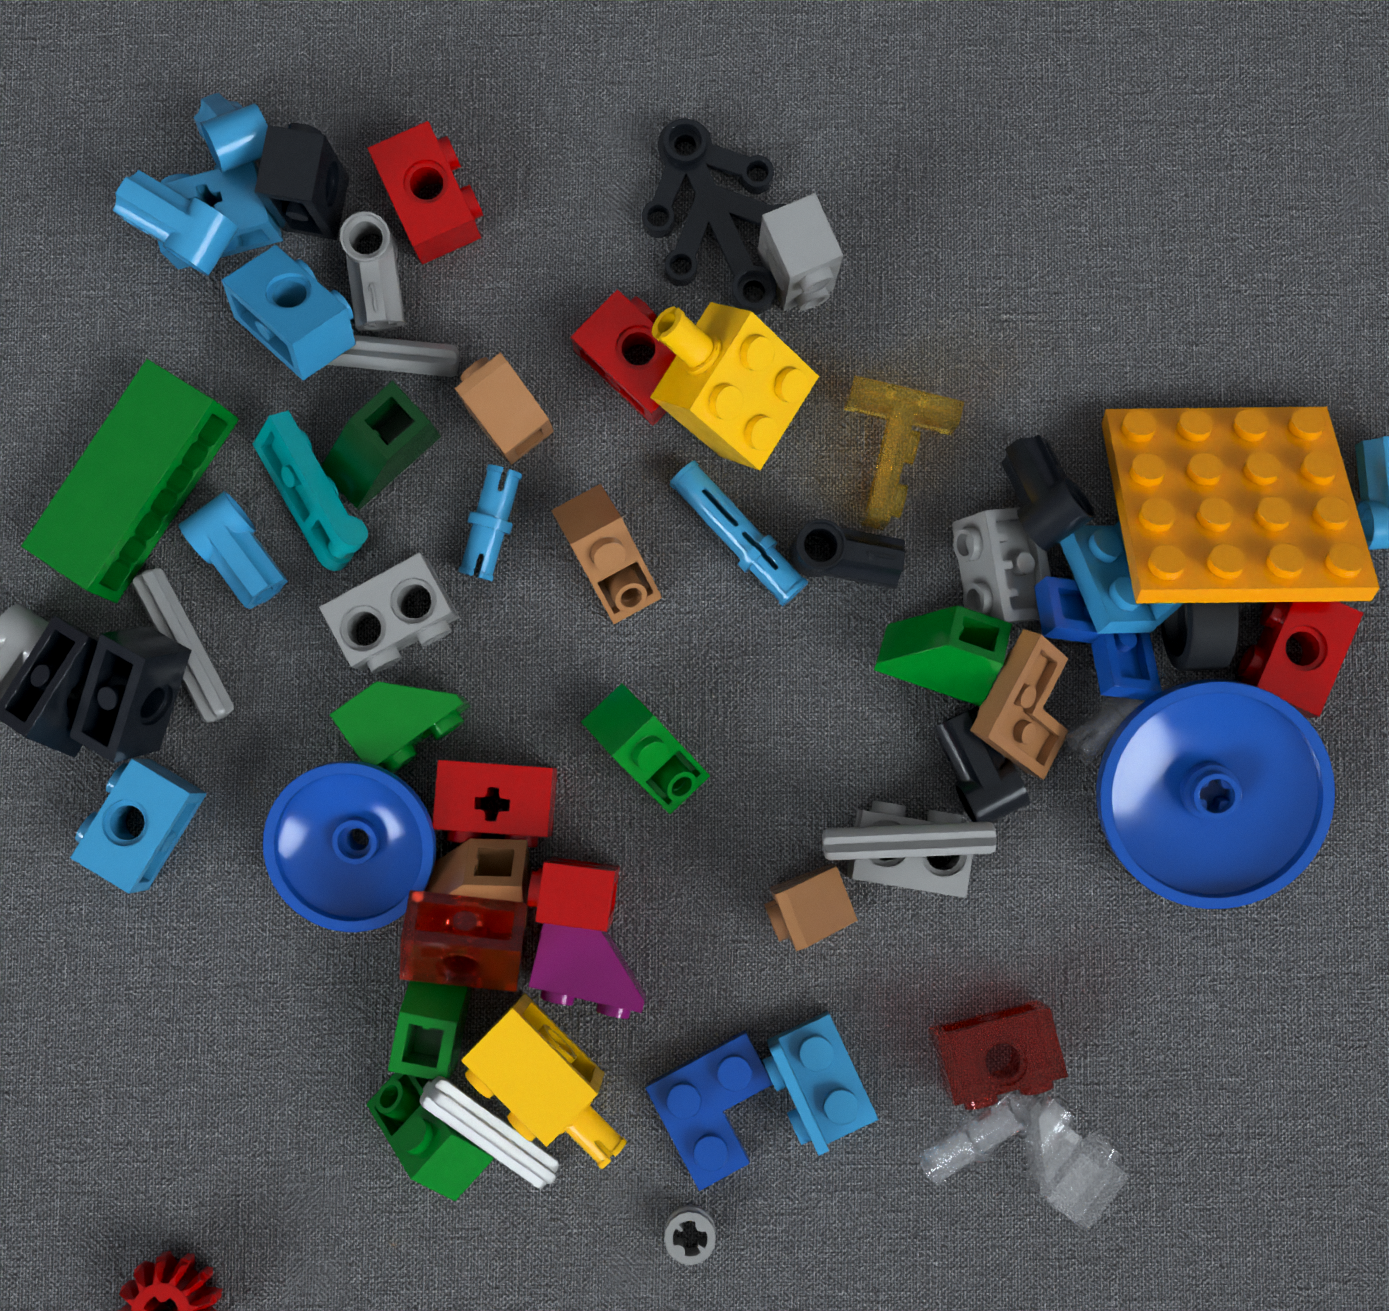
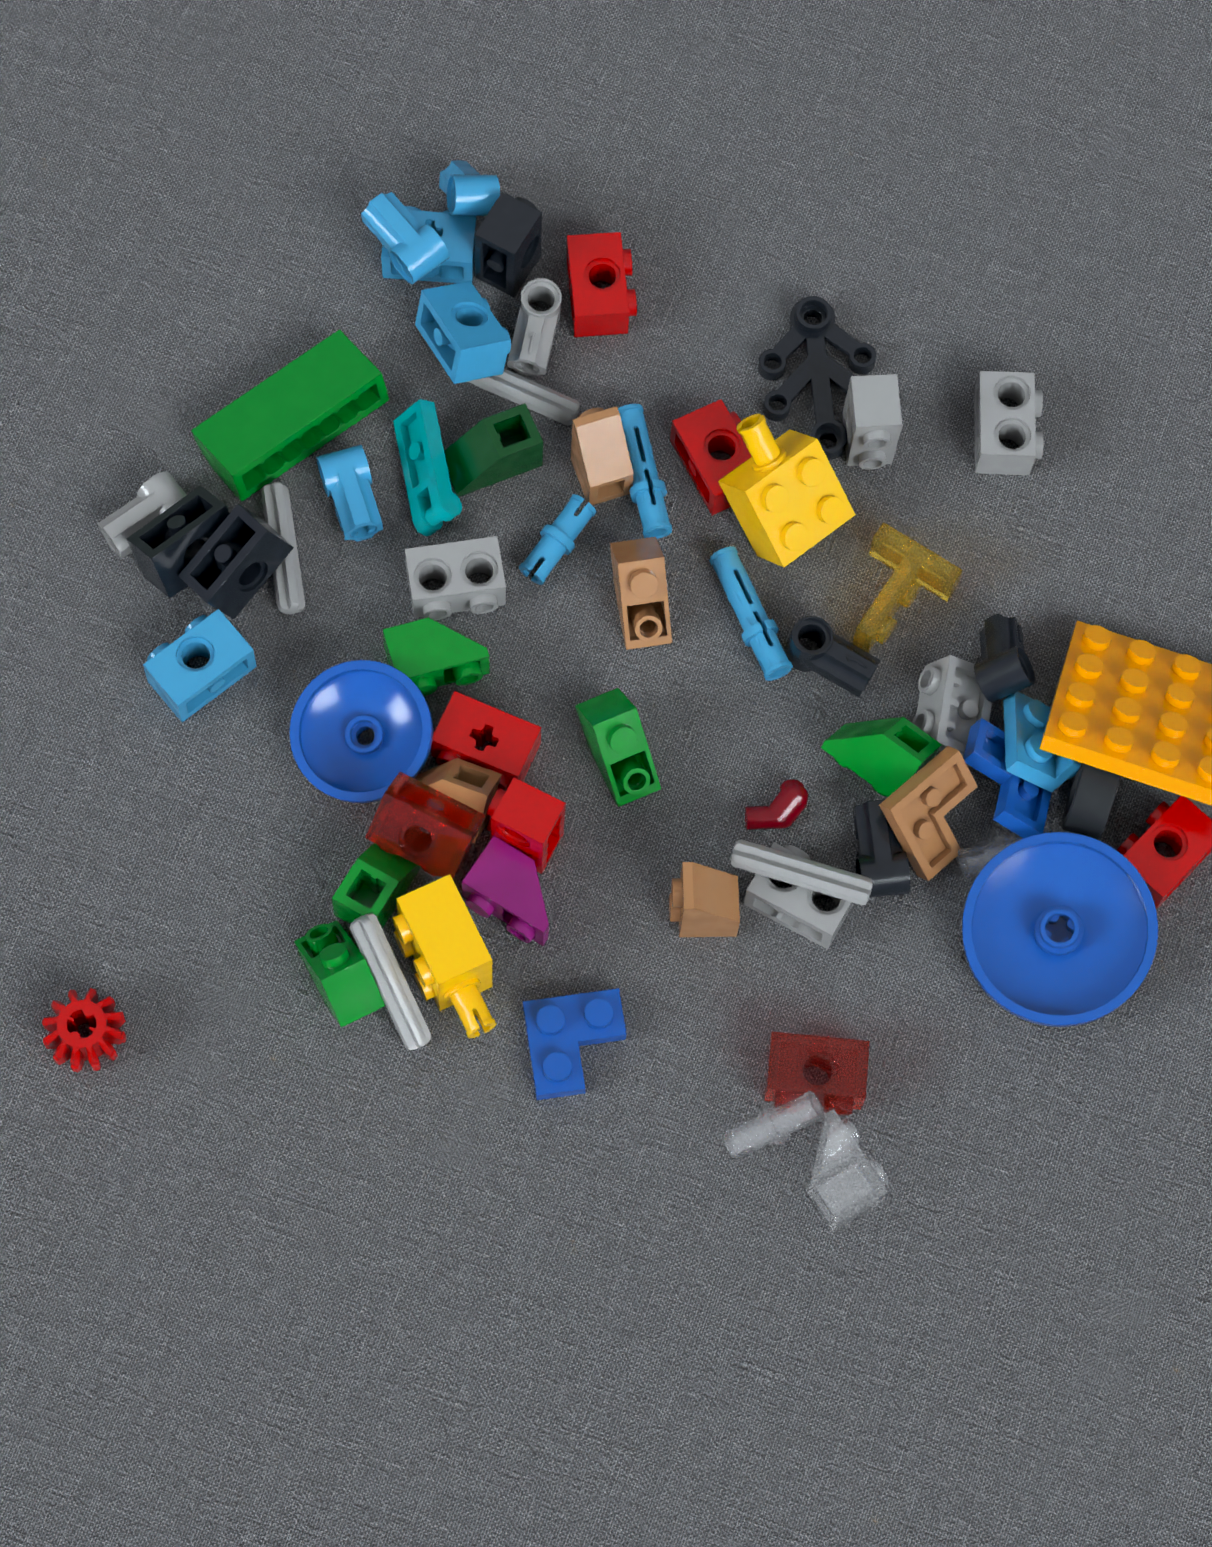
camera: 15 degrees right, 15 degrees down
(591, 456) = (647, 488): none -> dark azure pin
(676, 1245) = (502, 1134): light grey bush -> none
(820, 1081) = (665, 1048): dark azure bracket -> none
(855, 754) = (783, 809): none -> dark red arm
(935, 199) = (999, 422): none -> light grey brick

